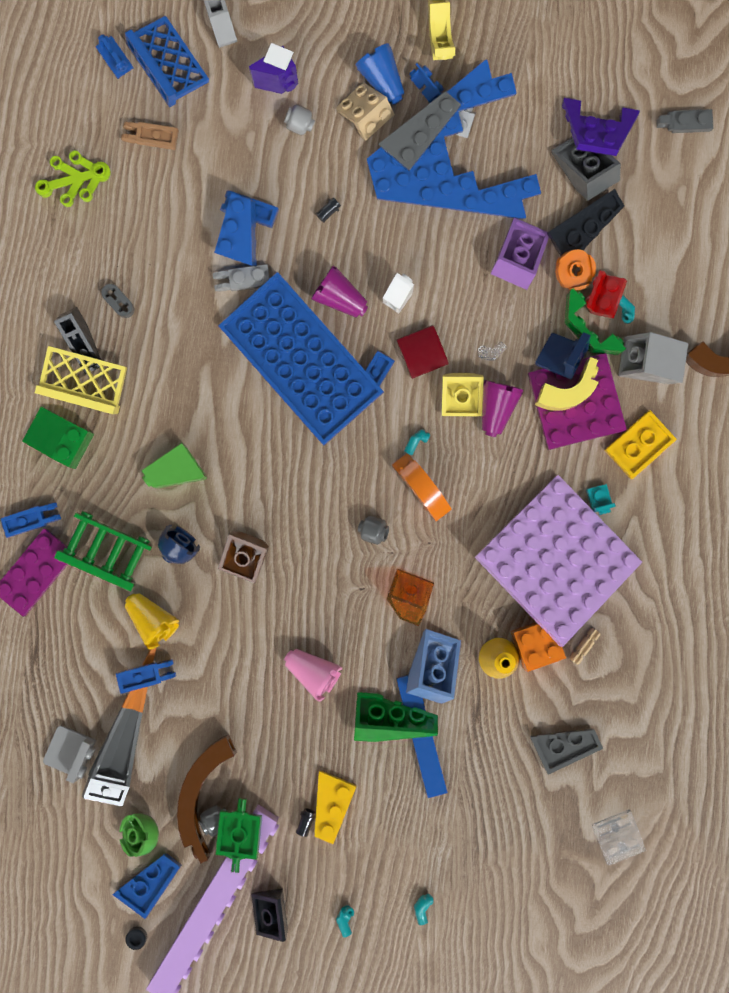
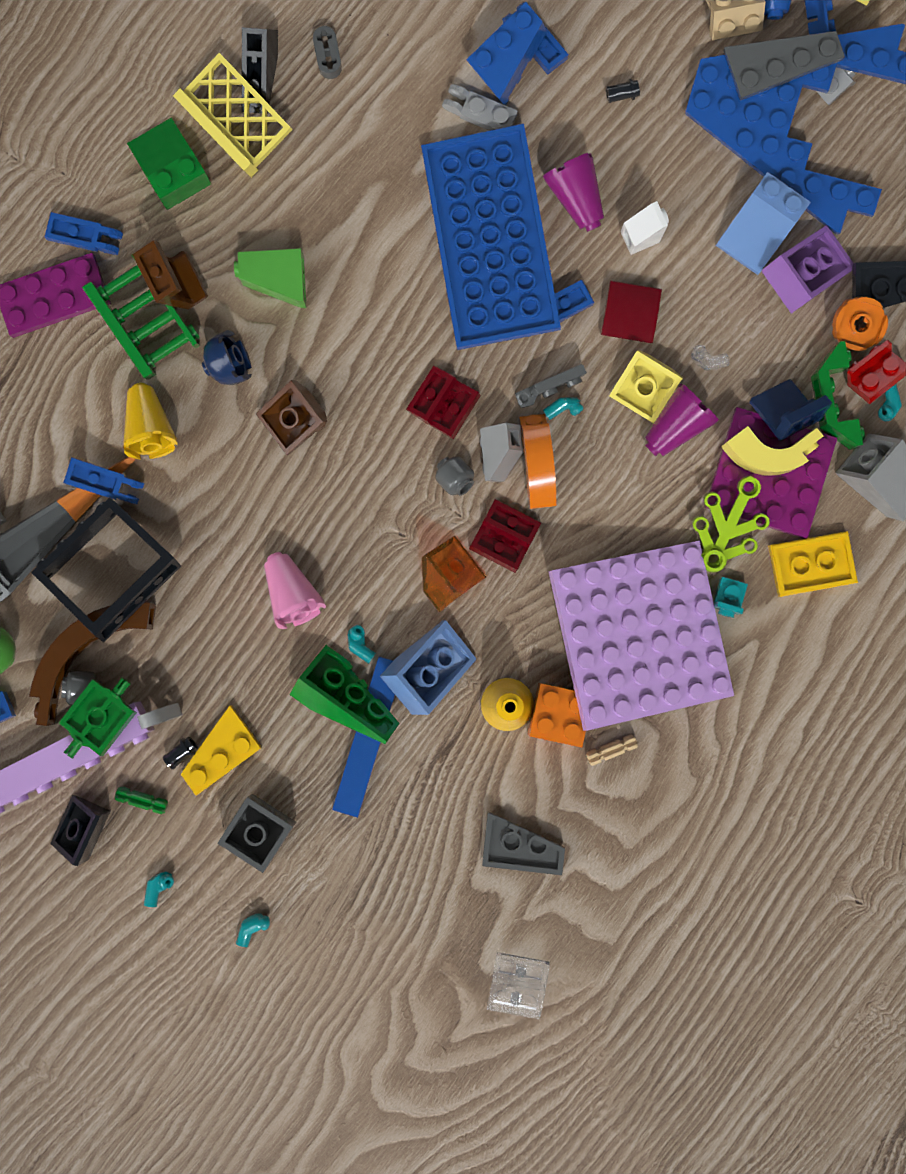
camera: 30 degrees right, 0 degrees up
(107, 515) = (171, 279): none -> reddish brown panel
(214, 738) = (133, 597): none -> black window
(278, 807) = (159, 715): none -> light grey beam
(298, 869) = (141, 800): none -> green axle
(336, 485) = (443, 402): none -> dark red slope
(377, 679) = (356, 643): none -> teal arm
(389, 844) = (256, 832): none -> dark grey brick
(393, 495) = (500, 450): none -> light grey slope
(399, 433) = (549, 386): none -> dark grey hinge
(430, 548) = (505, 536): none -> dark red slope
(472, 242) = (763, 223): none -> medium blue slope
(572, 455) = (728, 528): none -> lime plant

